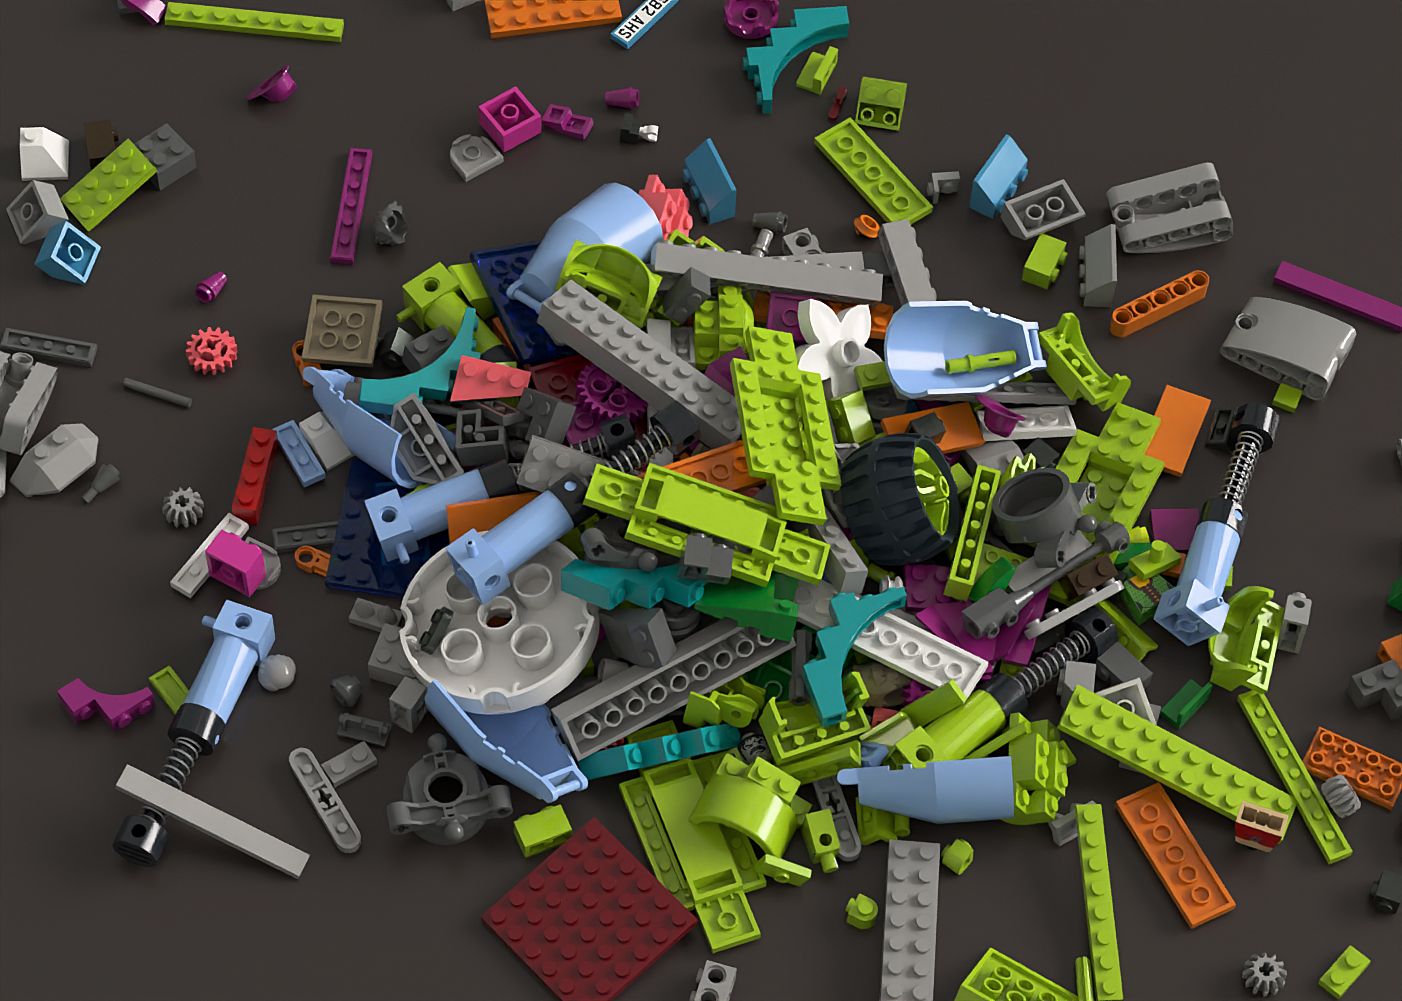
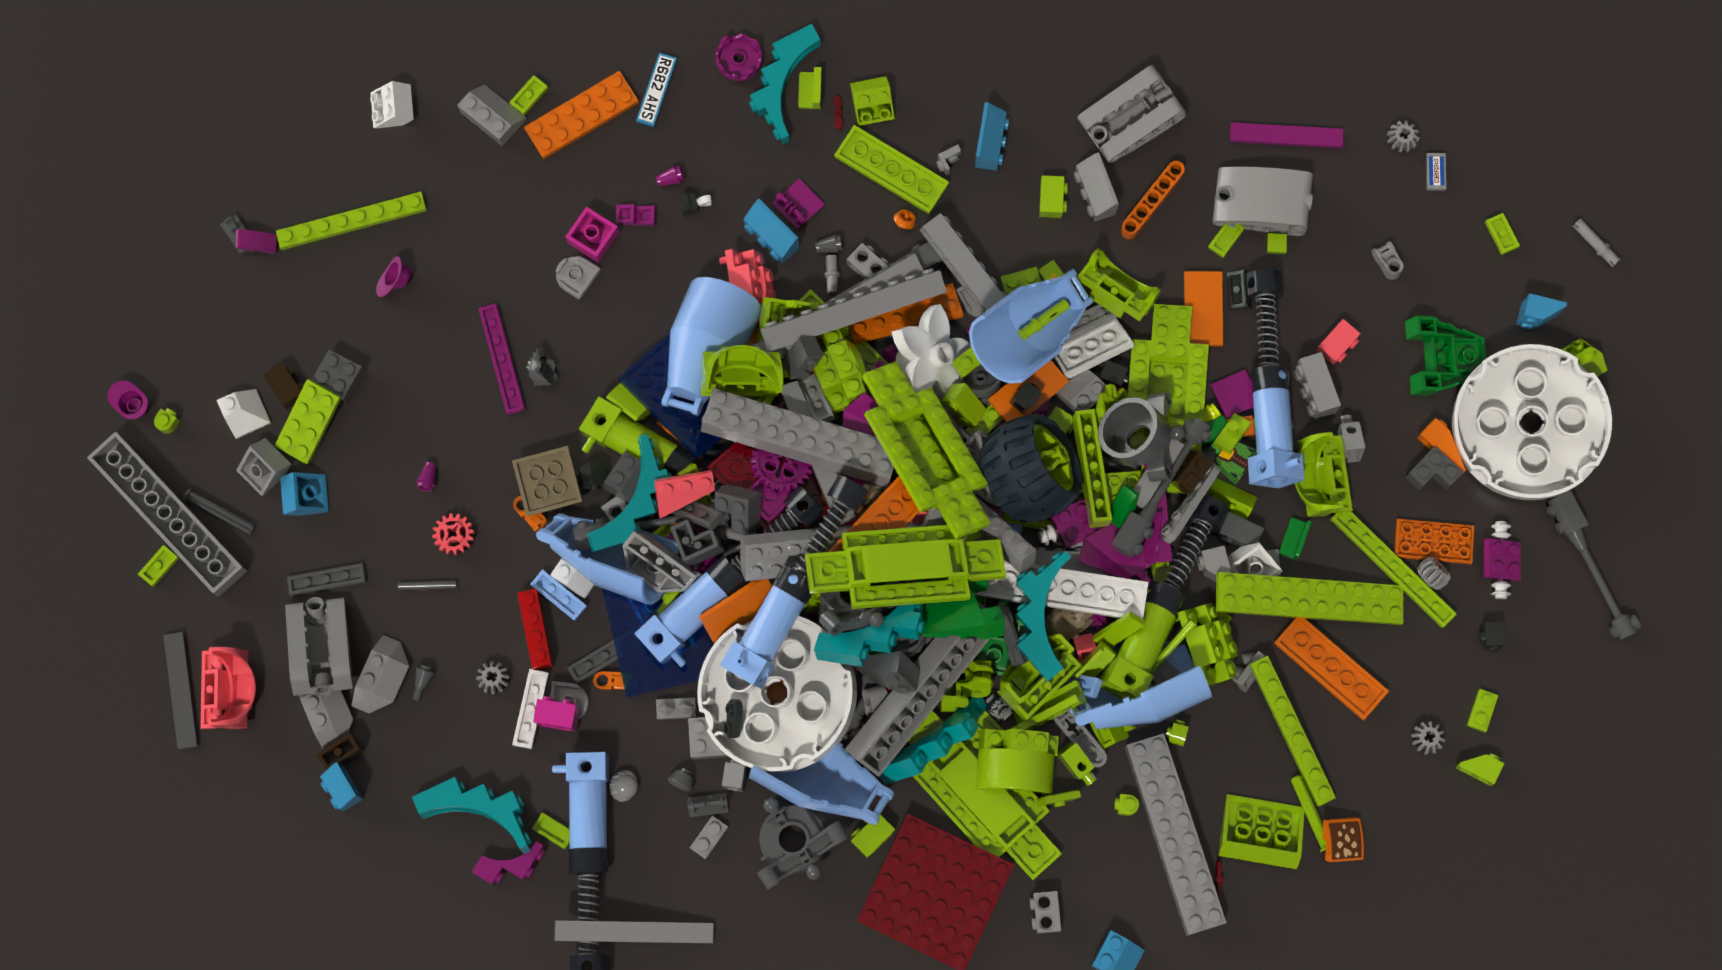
camera: 15 degrees left, 20 degrees up
(102, 622) = (453, 797): none -> teal arch
(336, 819) = (690, 862): light grey piece -> none
(703, 561) = (921, 608): dark grey brick -> none
(752, 171) = (798, 203): none -> magenta hinge
(784, 314) = (878, 332): magenta tile -> none
(998, 418) = (1075, 359): magenta piece -> none
(1041, 210) = (1036, 156): light grey slope -> none
(1229, 373) = (1225, 239): none -> lime tile
(1259, 827) = (1388, 627): tan torso -> none
(1275, 549) = (1316, 386): none -> light grey brick
(1320, 519) = (1338, 342): none -> coral brick

